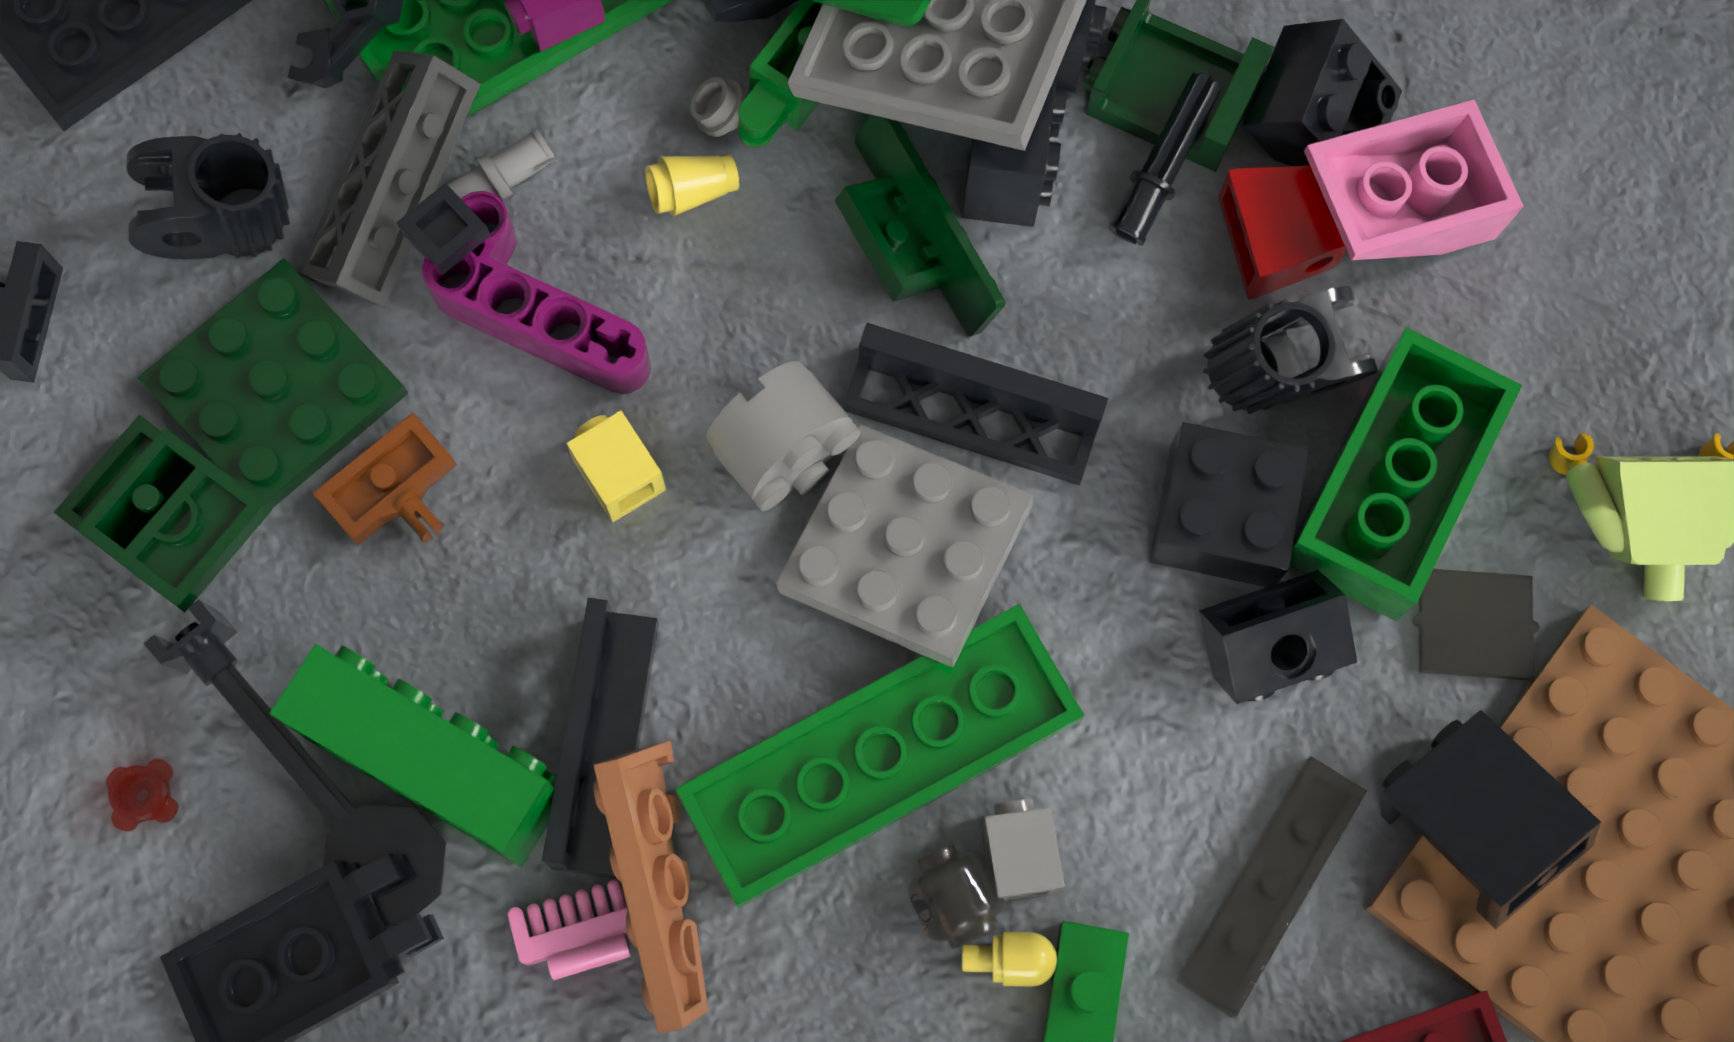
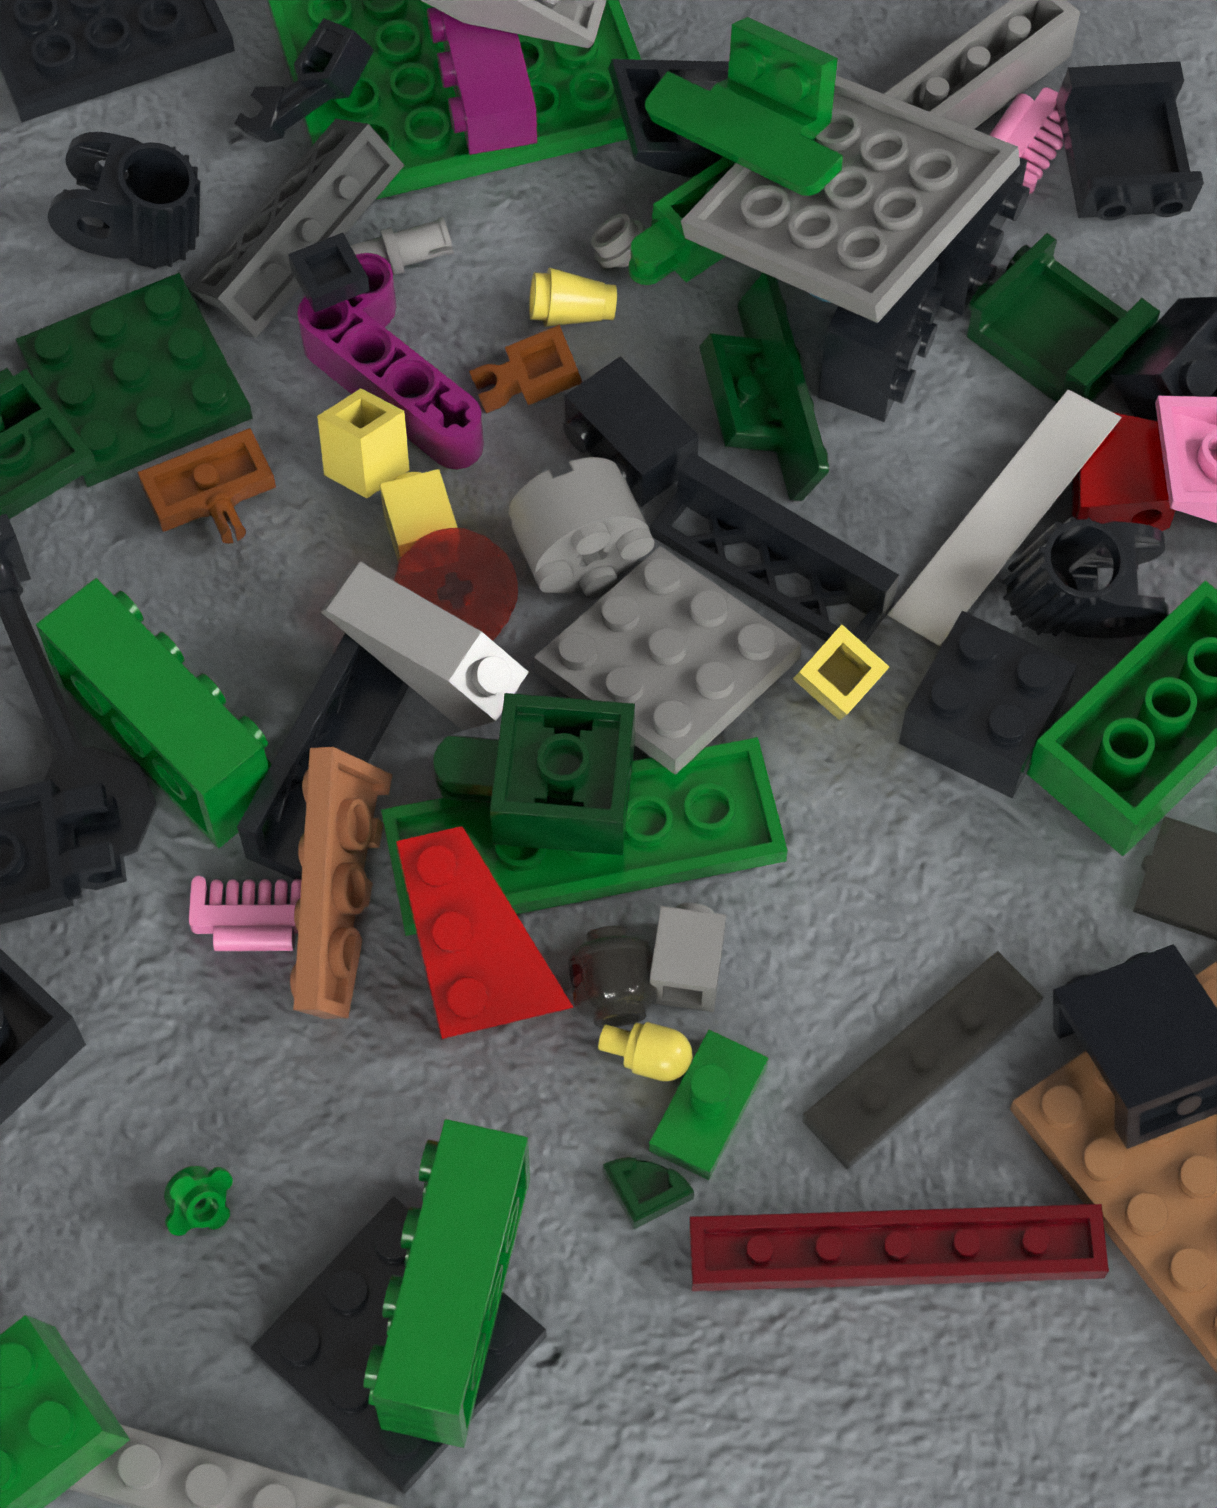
camera: 20 degrees right, 10 degrees down
(534, 400) = (363, 442): none -> light yellow brick
(639, 523) = (472, 559): none -> clear red plate
(669, 609) = (426, 647): none -> light grey slope
(680, 265) = (536, 367): none -> dark orange plate
(793, 310) = (628, 423): none -> black brick
(815, 913) = (471, 940): none -> red wedge
(839, 721) = (551, 776): none -> dark green brick
(1082, 515) = (841, 672): none -> light yellow brick
(1154, 181) = (1013, 401): black axle -> none
(1186, 303) = (1004, 516): none -> white sticker
(1244, 630) = (964, 812): black brick -> none

